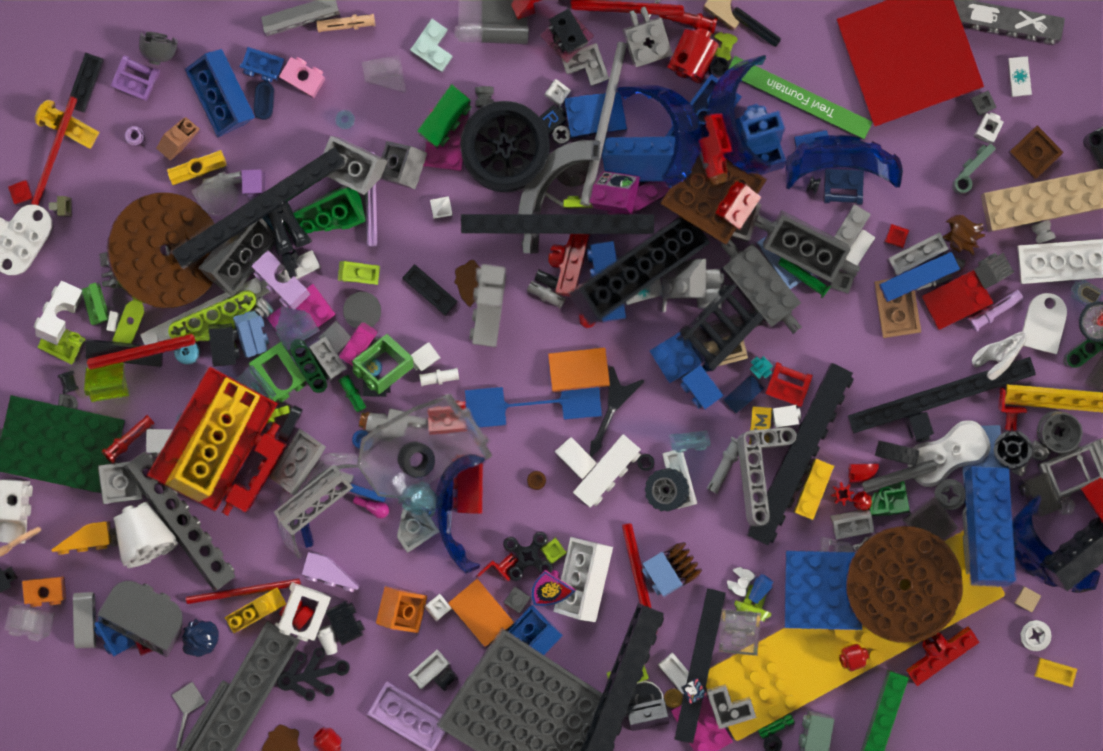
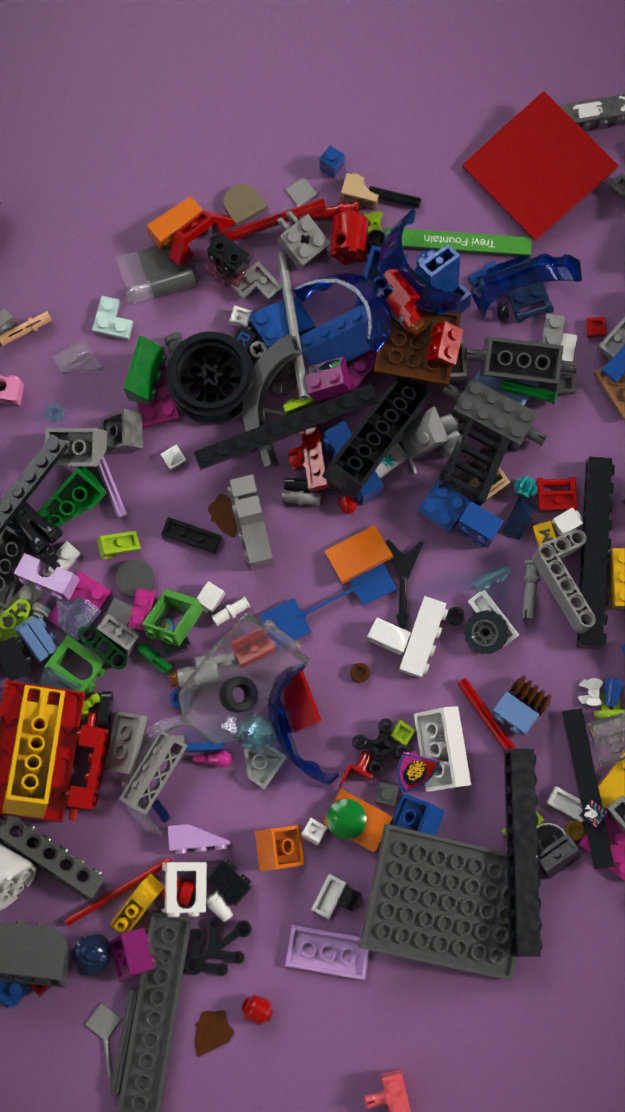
camera: 20 degrees left, 10 degrees down
(235, 651) = (131, 954): none -> magenta slope
(471, 608) = (346, 819): none -> green dish

